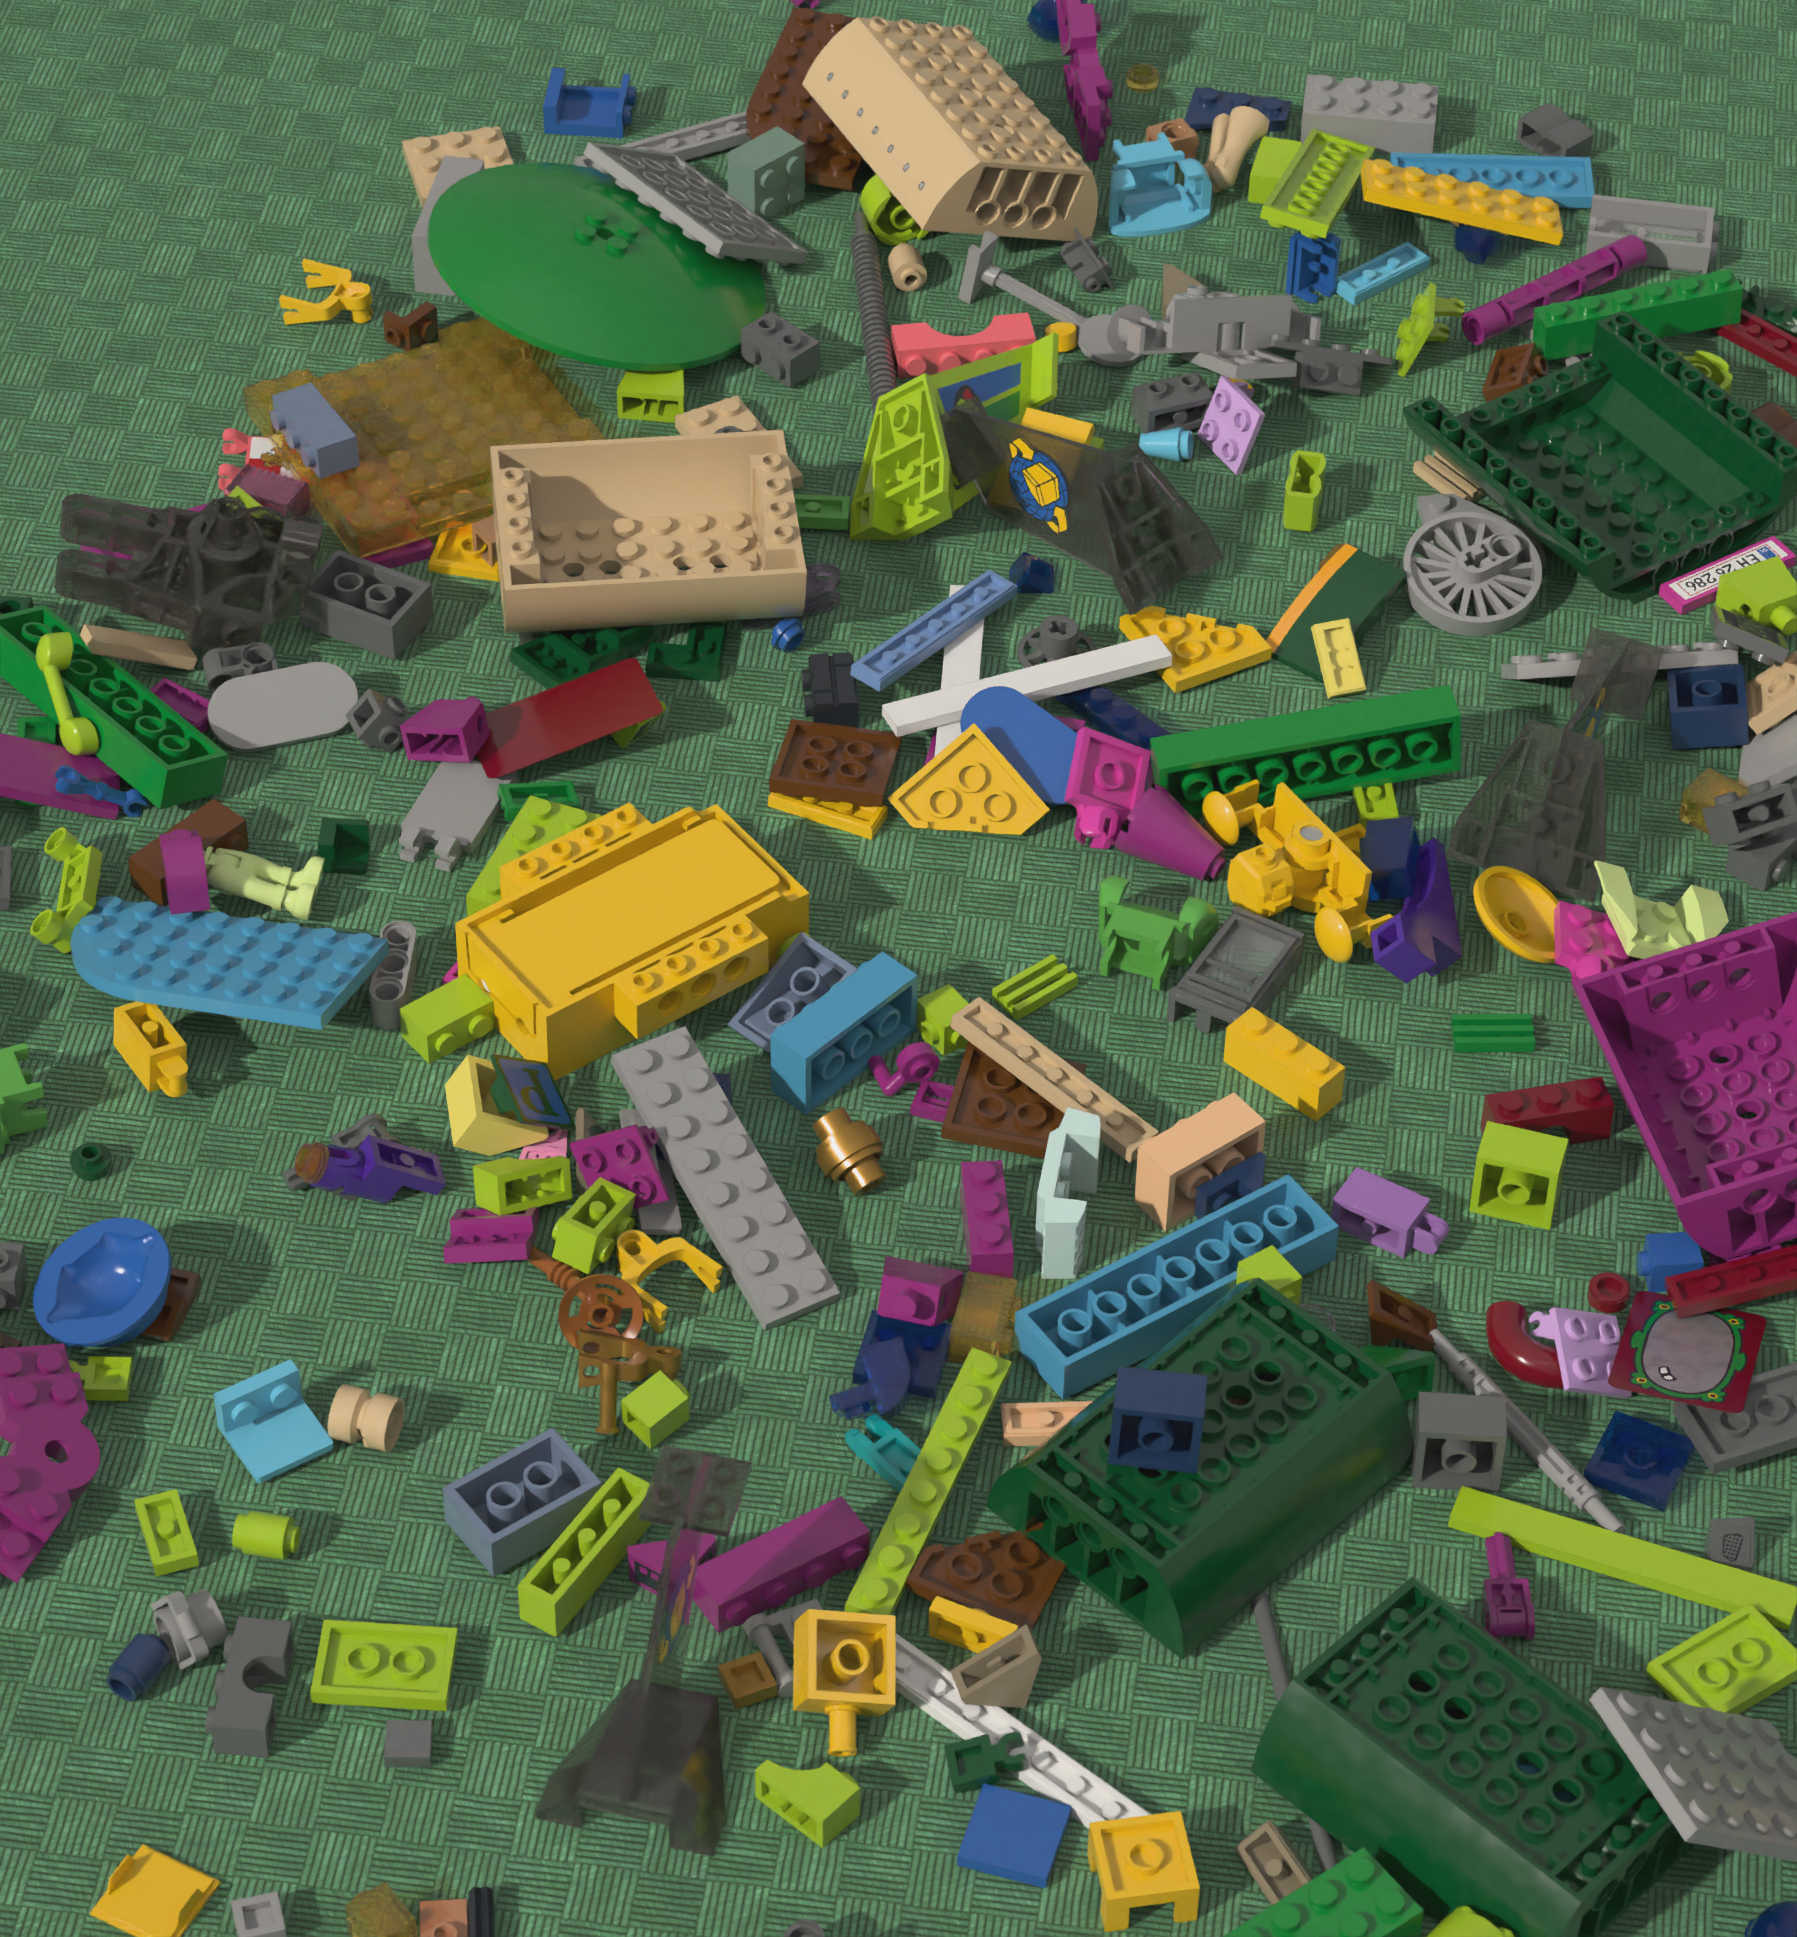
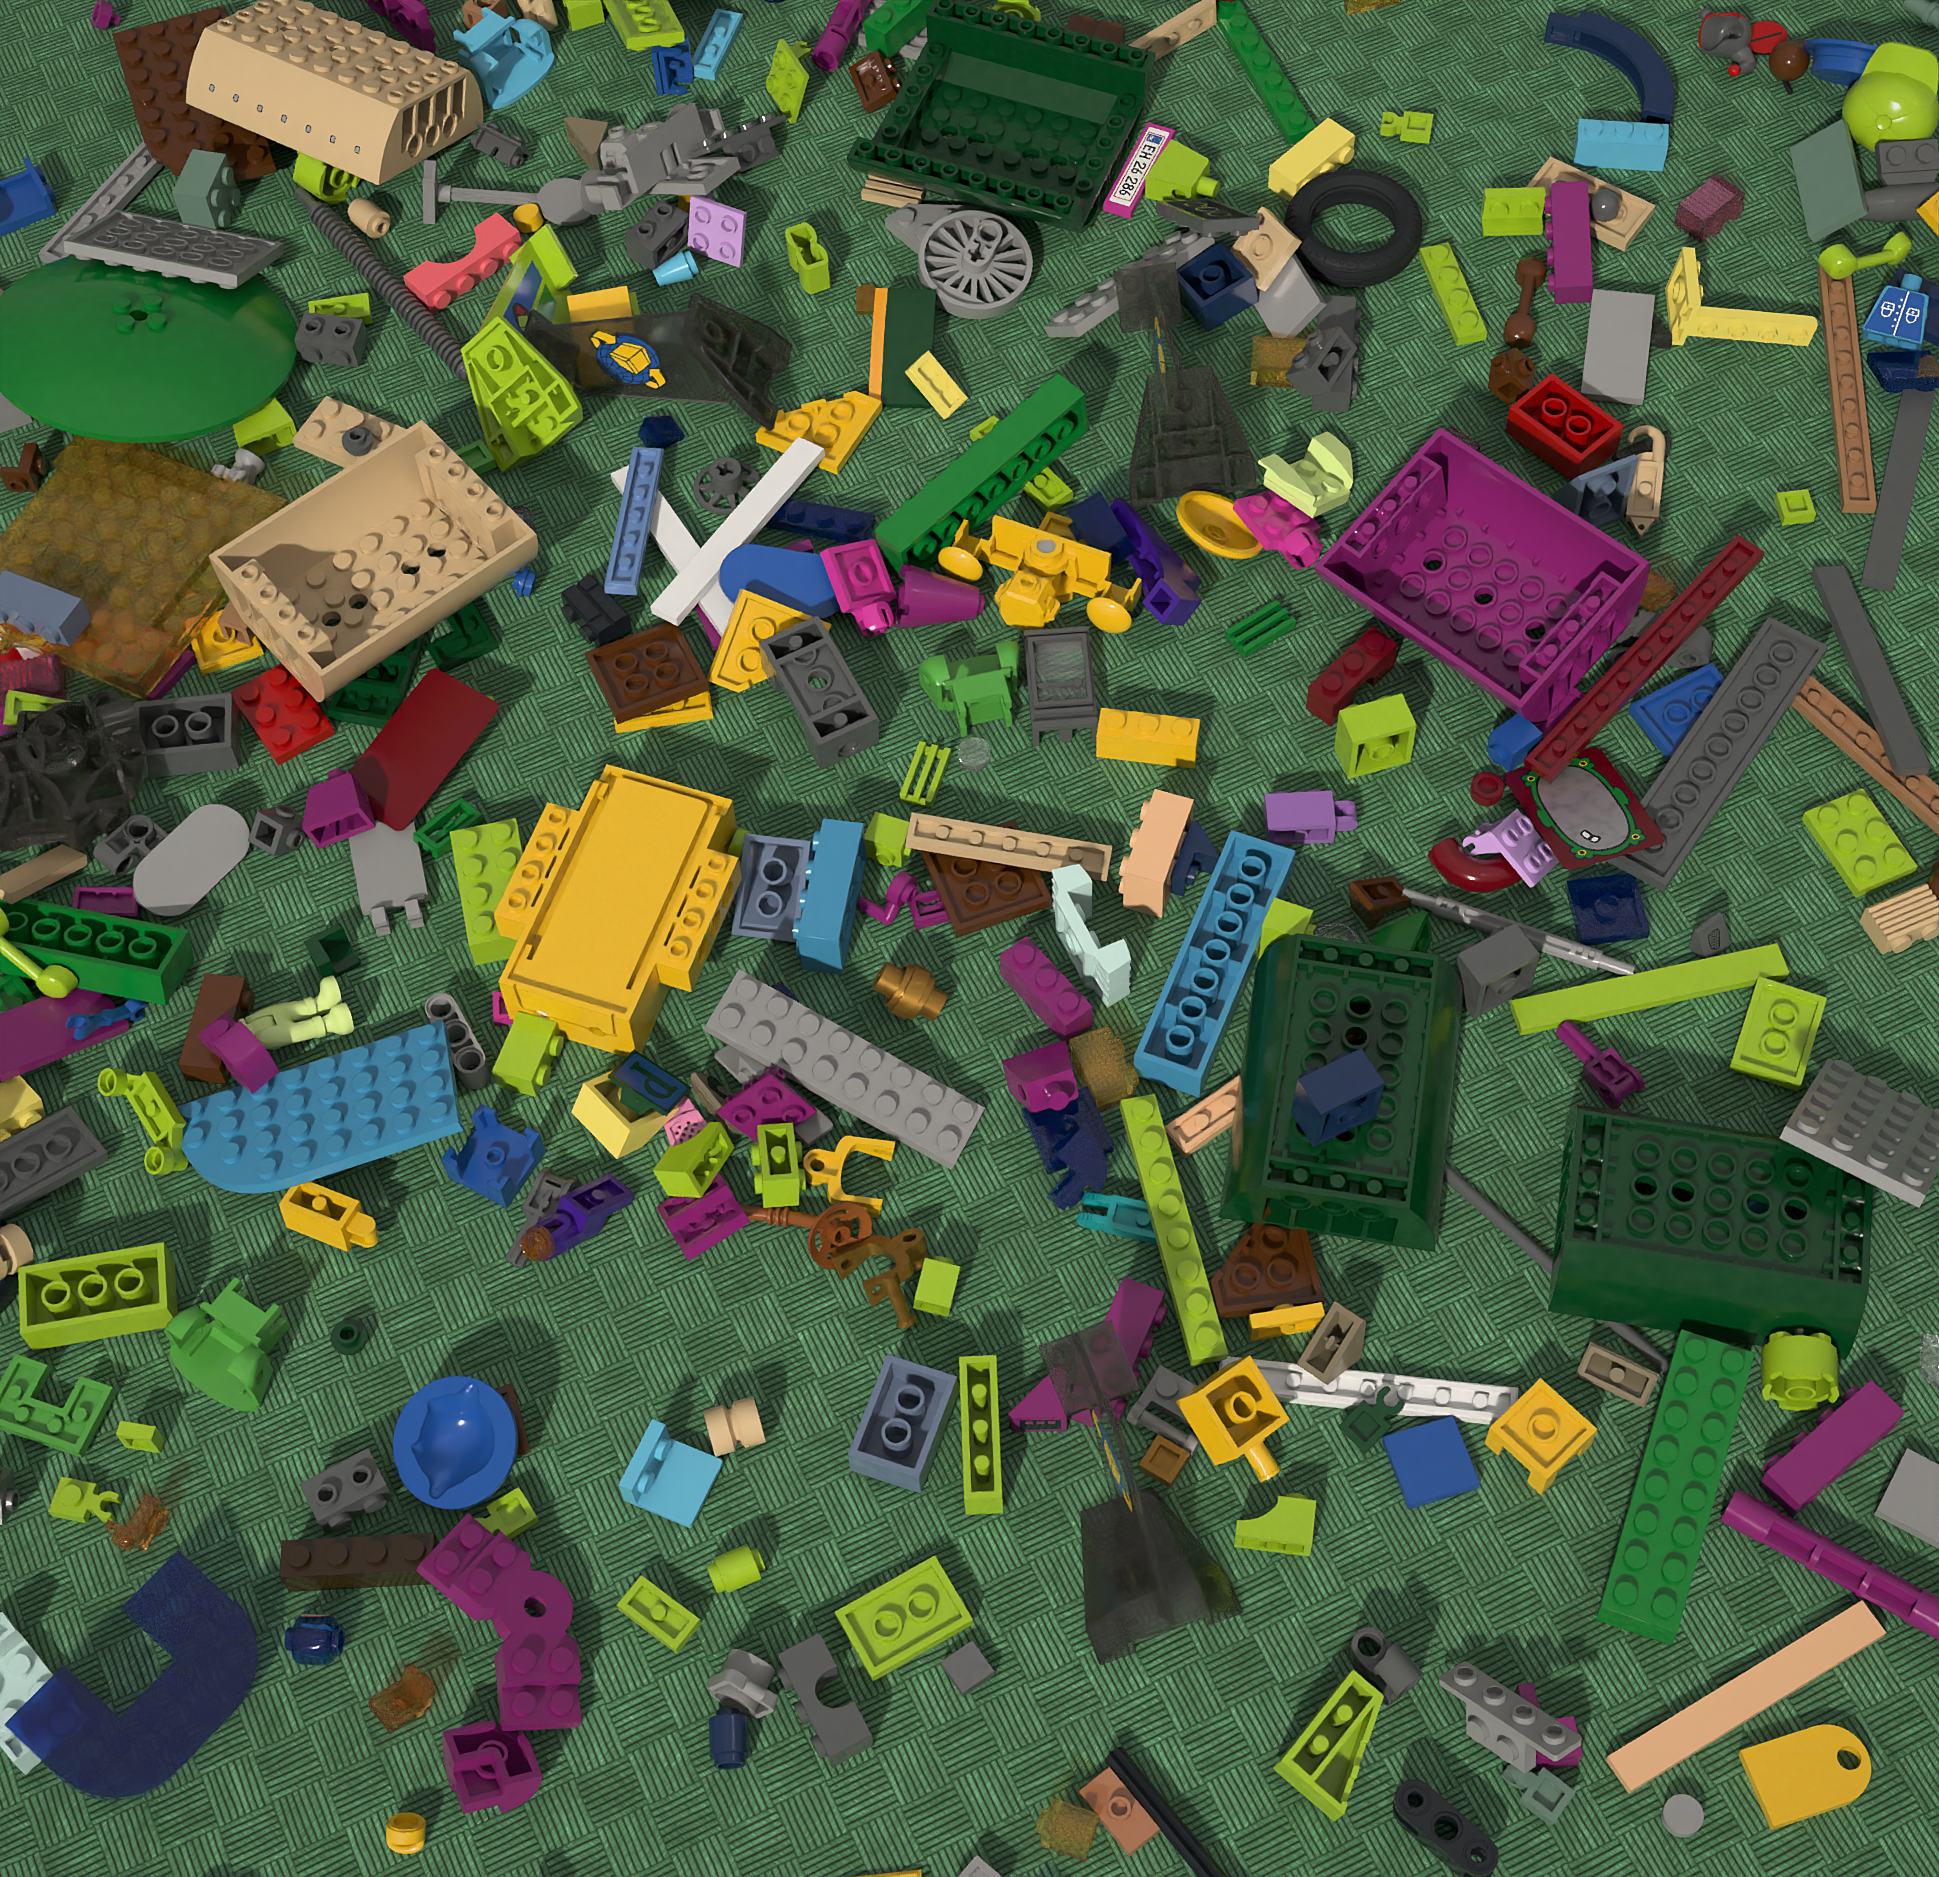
camera: 30 degrees left, 15 degrees up
(344, 1088) = (495, 1158): none -> blue panel
(469, 636) = (282, 714): none -> red plate
(608, 419) = (245, 468): none -> light grey piece
(829, 334) = (350, 306): none -> lime plate
(980, 880) = (834, 717): none -> dark grey plate
(1099, 994) = (974, 754): none -> clear tile

